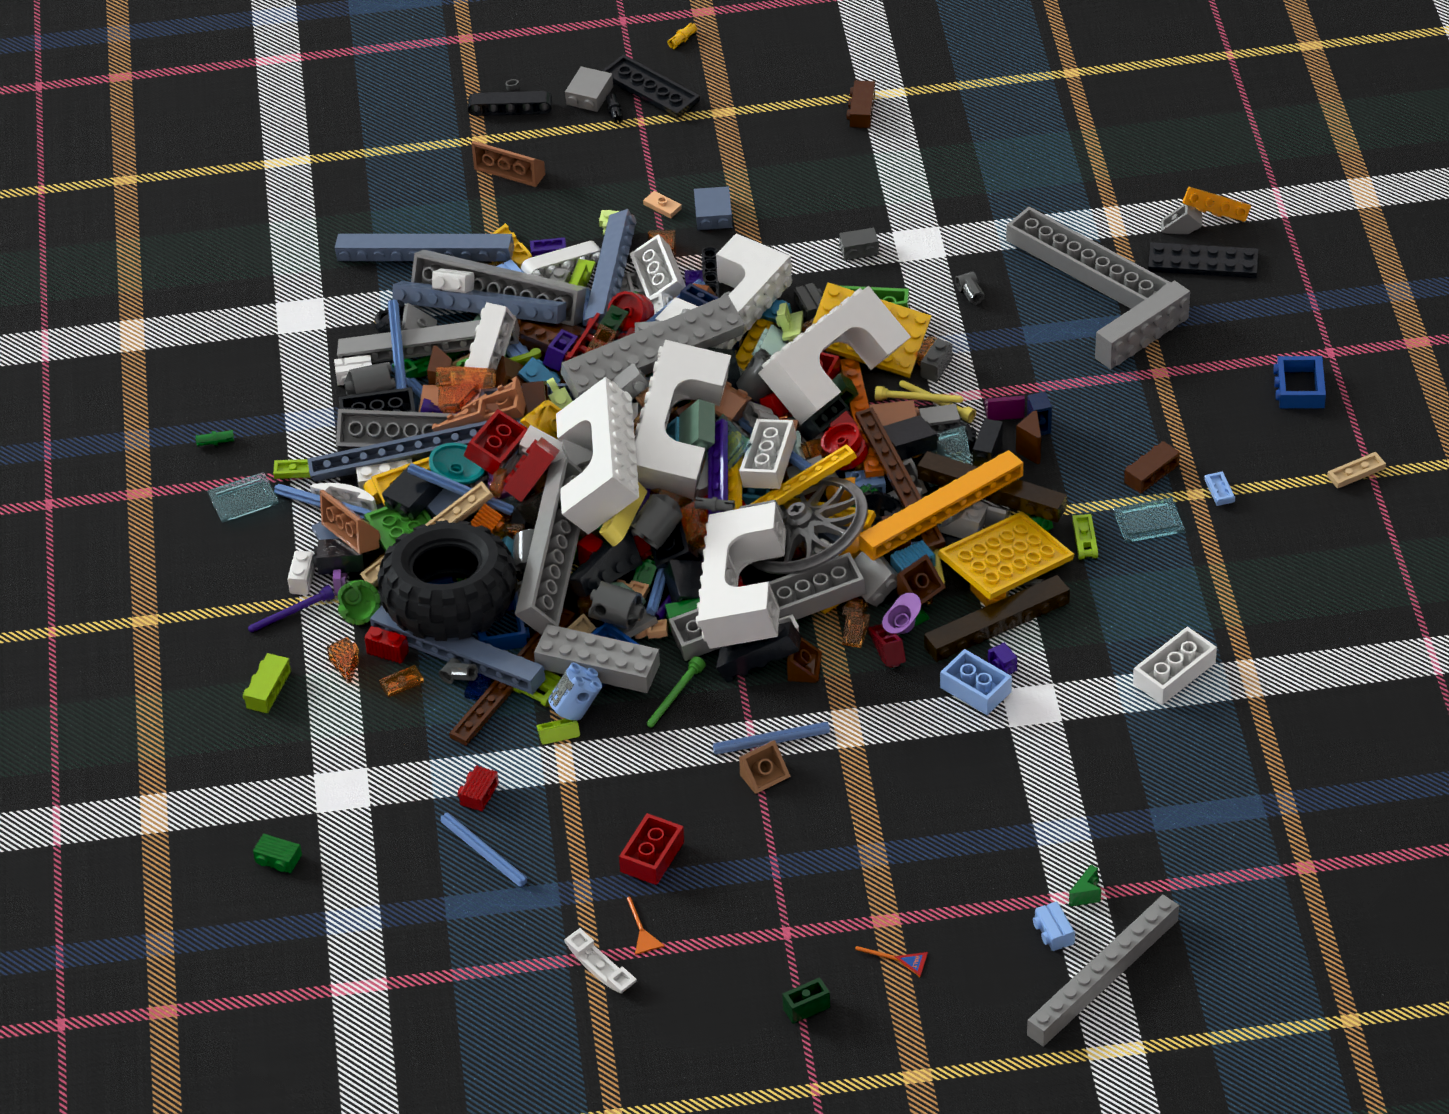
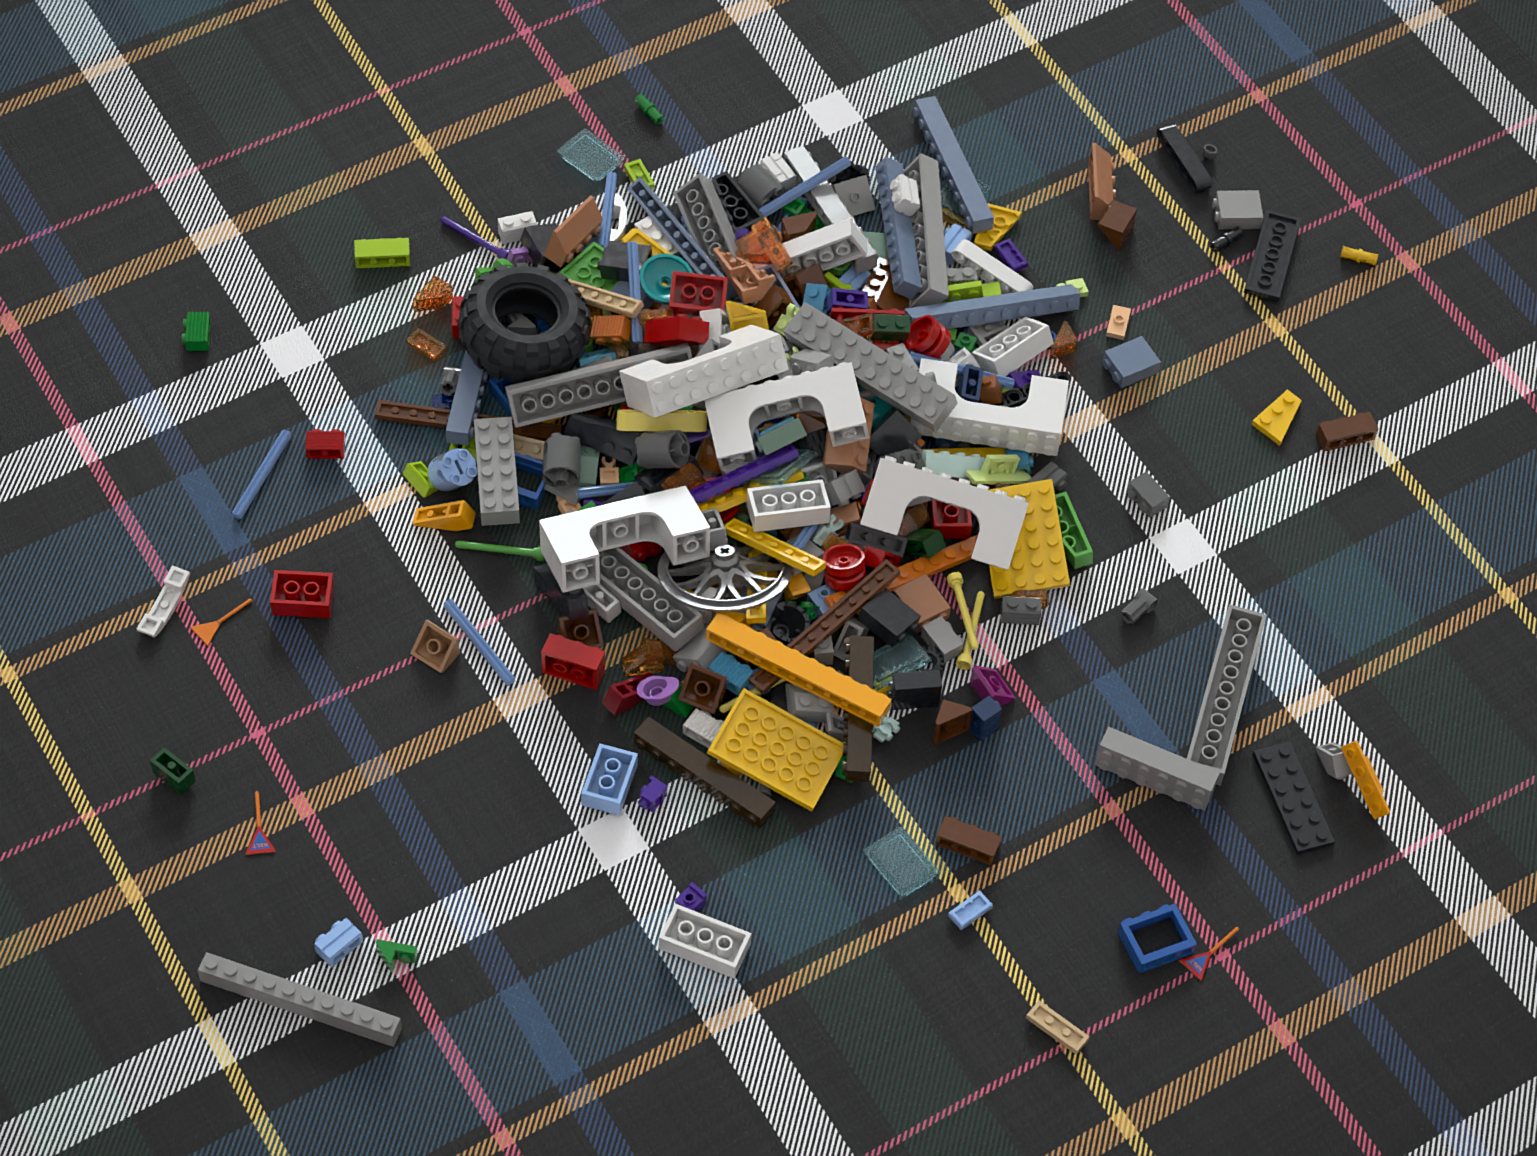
camera: 60 degrees right, 10 degrees up
(562, 161) = (1117, 222): none -> reddish brown slope
(616, 721) = (446, 516): none -> light orange slope
(714, 504) = (696, 484): dark grey pin -> none
(820, 141) = (1278, 416): none -> yellow wing
(837, 669) = (573, 661): none -> red brick
(953, 604) = (702, 727): none -> white brick
(1084, 536) = (848, 812): lime plate -> none
(1123, 665) = (695, 894): none -> dark purple brick
(1330, 368) = (1198, 963): none -> piece

